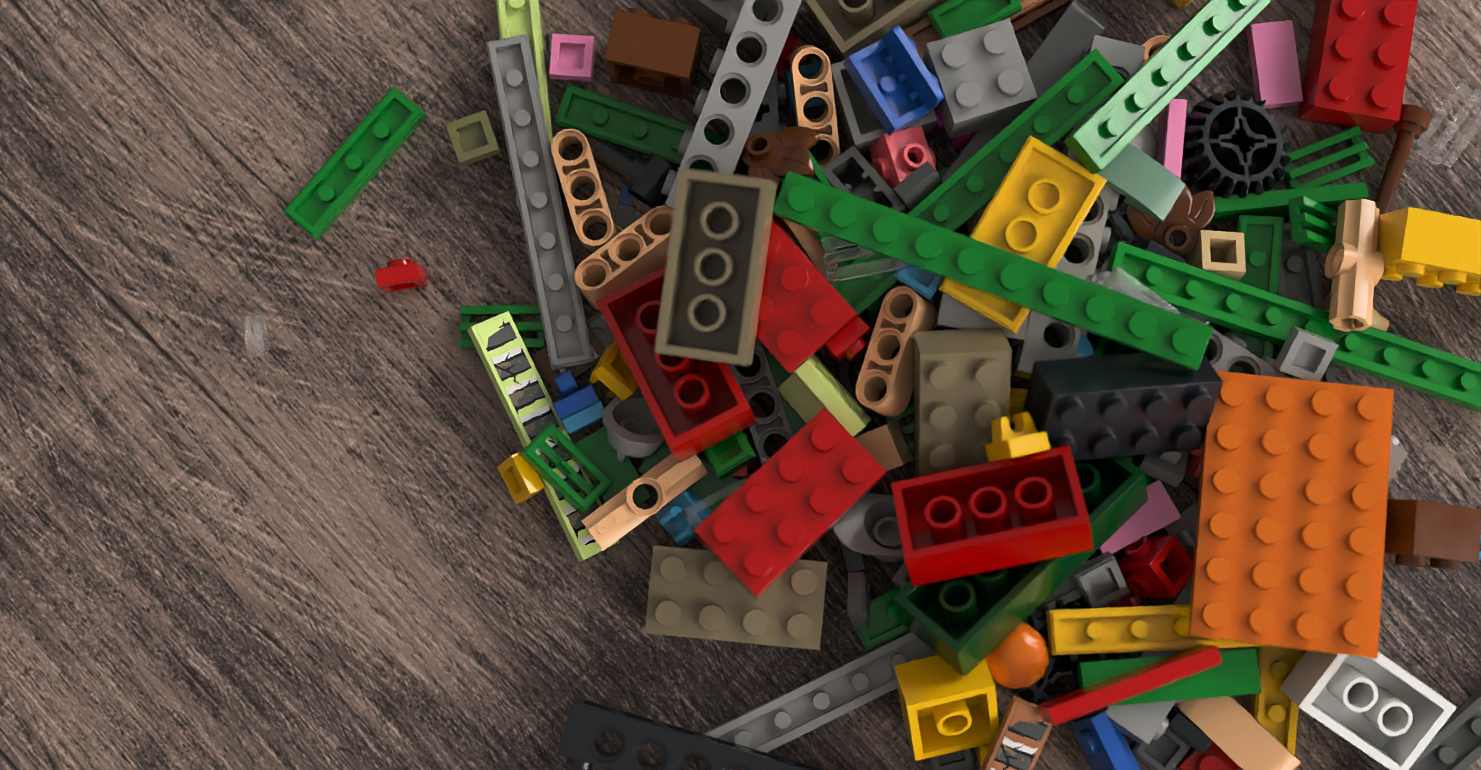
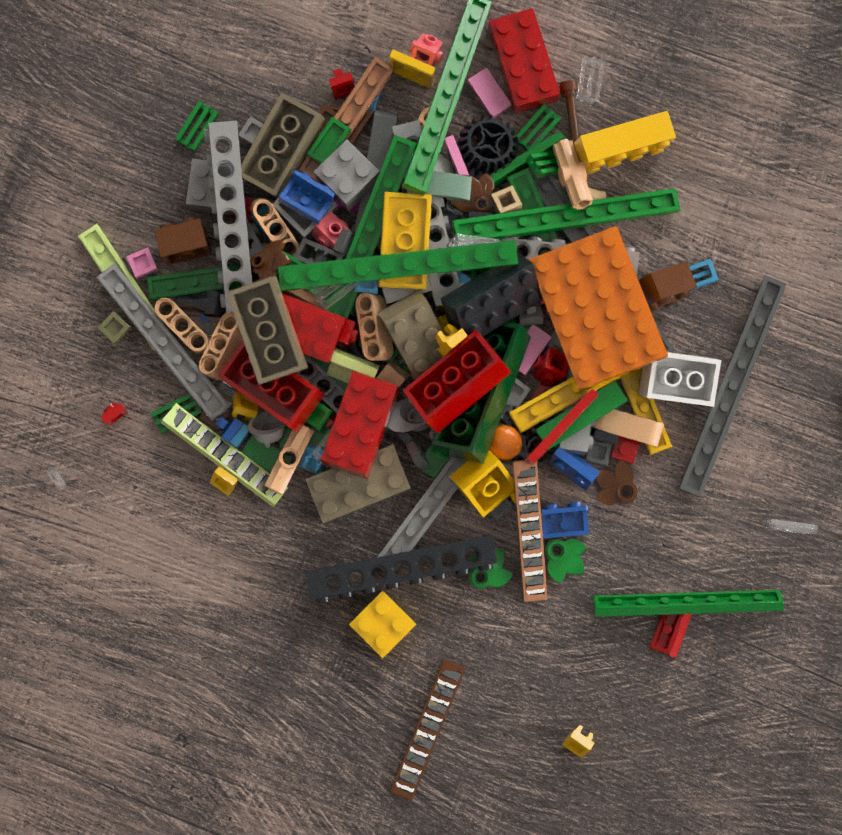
camera: 35 degrees left, 0 degrees up
(355, 163) = (60, 369): green tile -> none
(554, 479) = (243, 473): green tile -> none
(1100, 581) = (528, 386): dark grey tile -> none
(1305, 354) = (568, 229): light grey plate -> none

